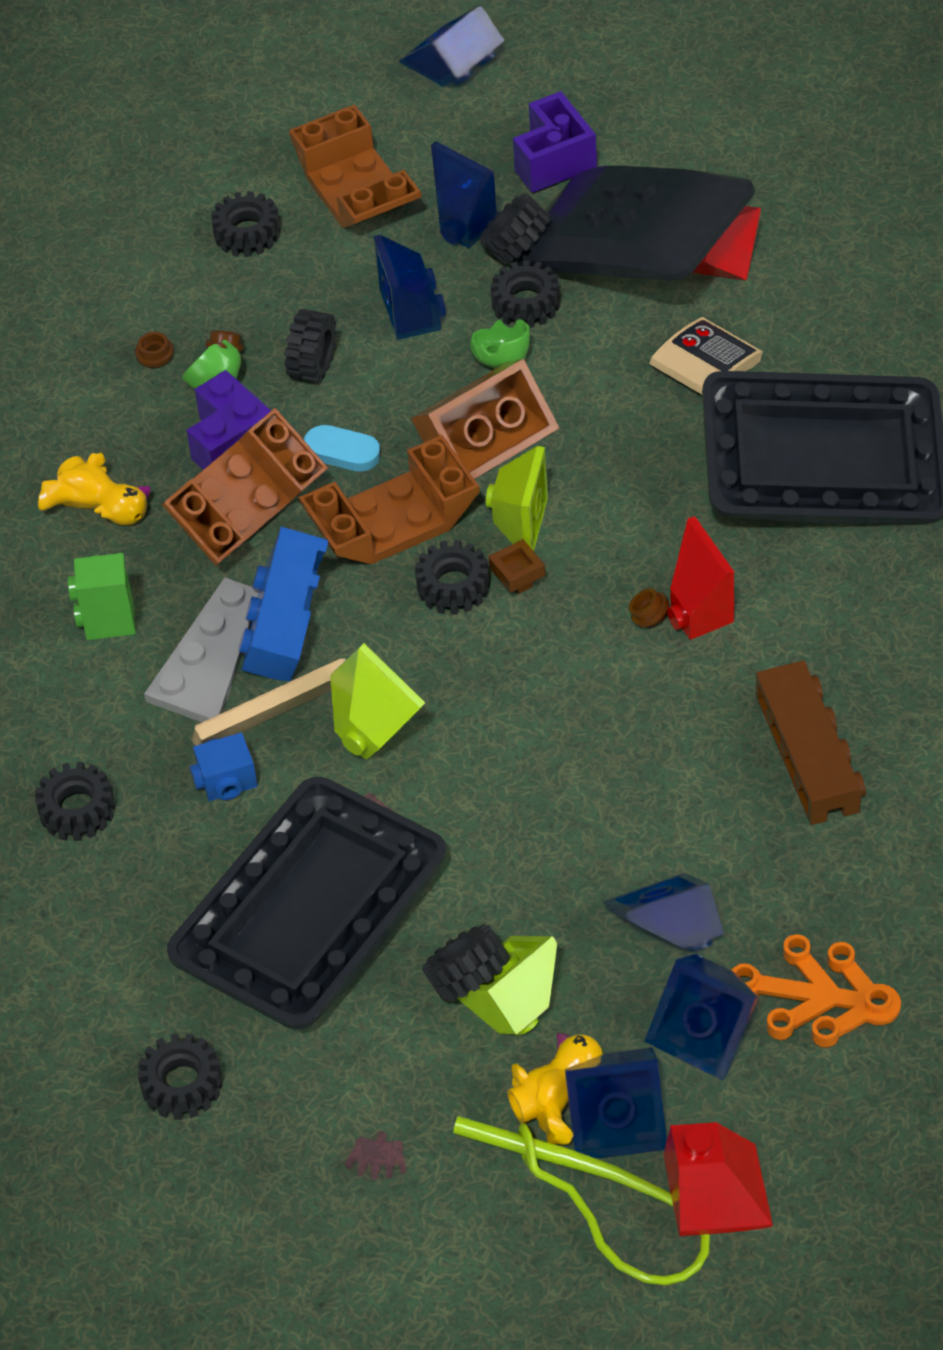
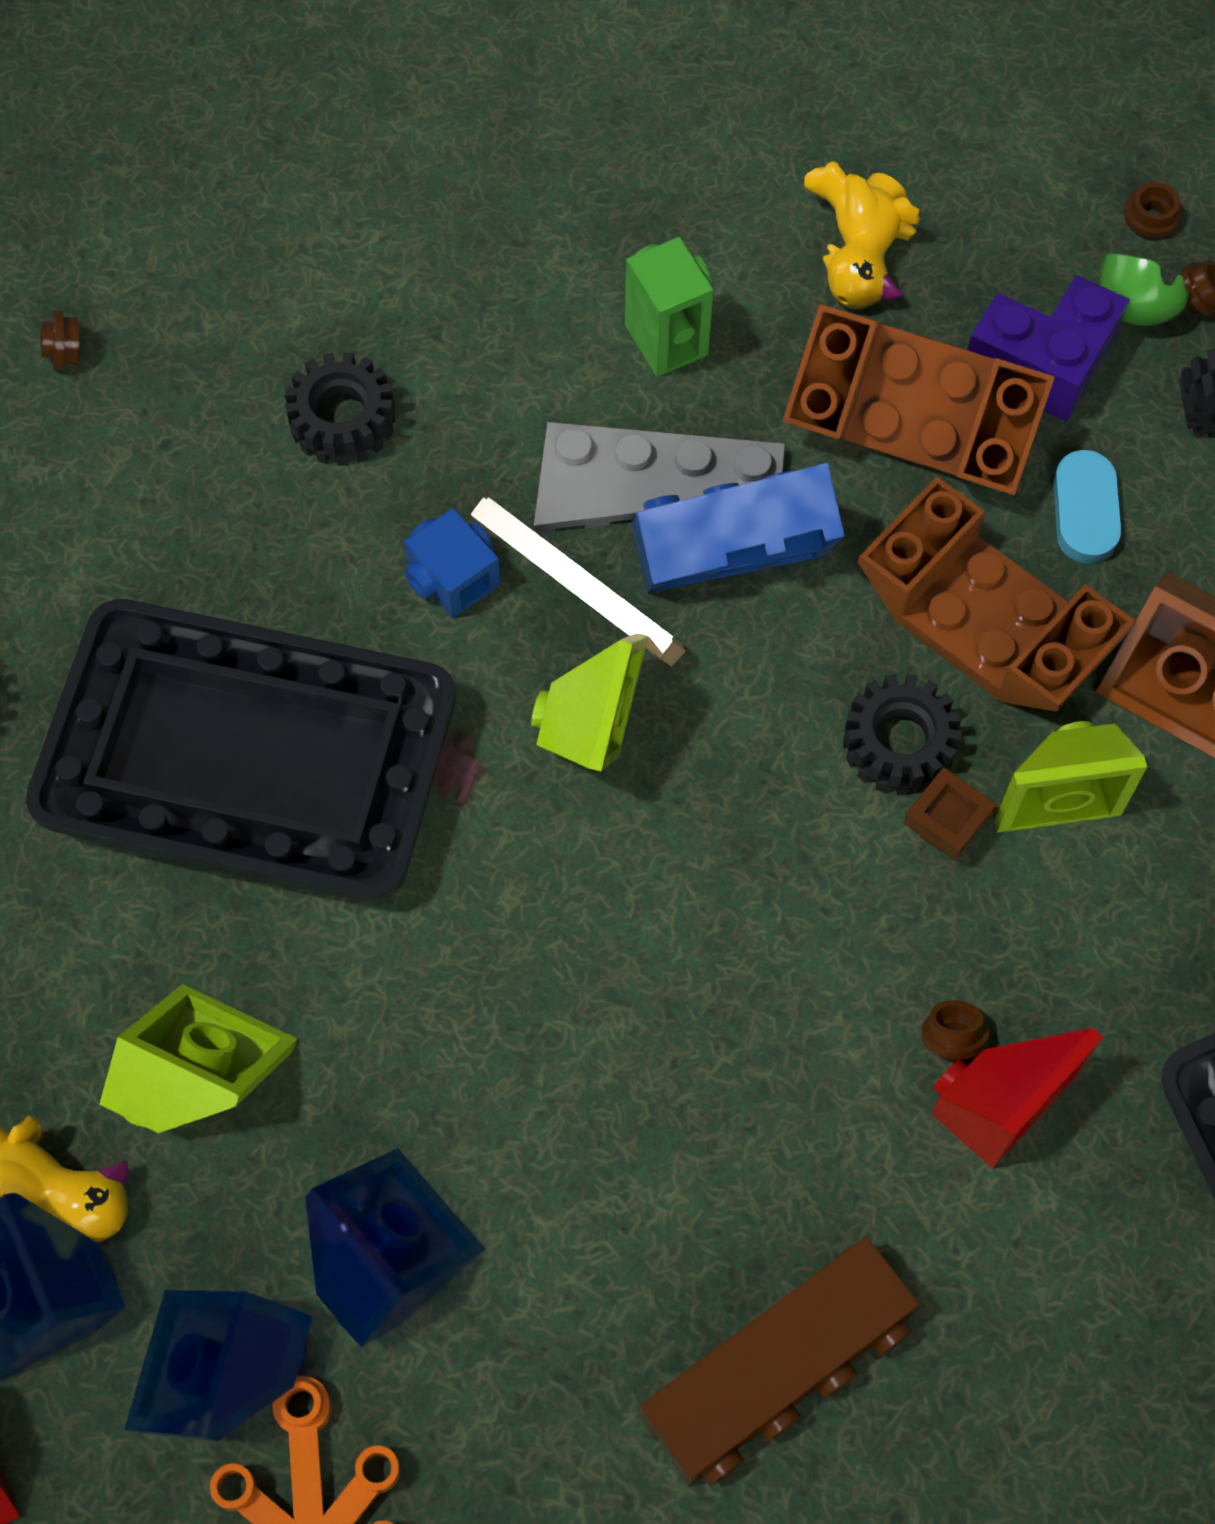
camera: 65 degrees right, 15 degrees up
(465, 962) = (193, 992): black tyre -> none

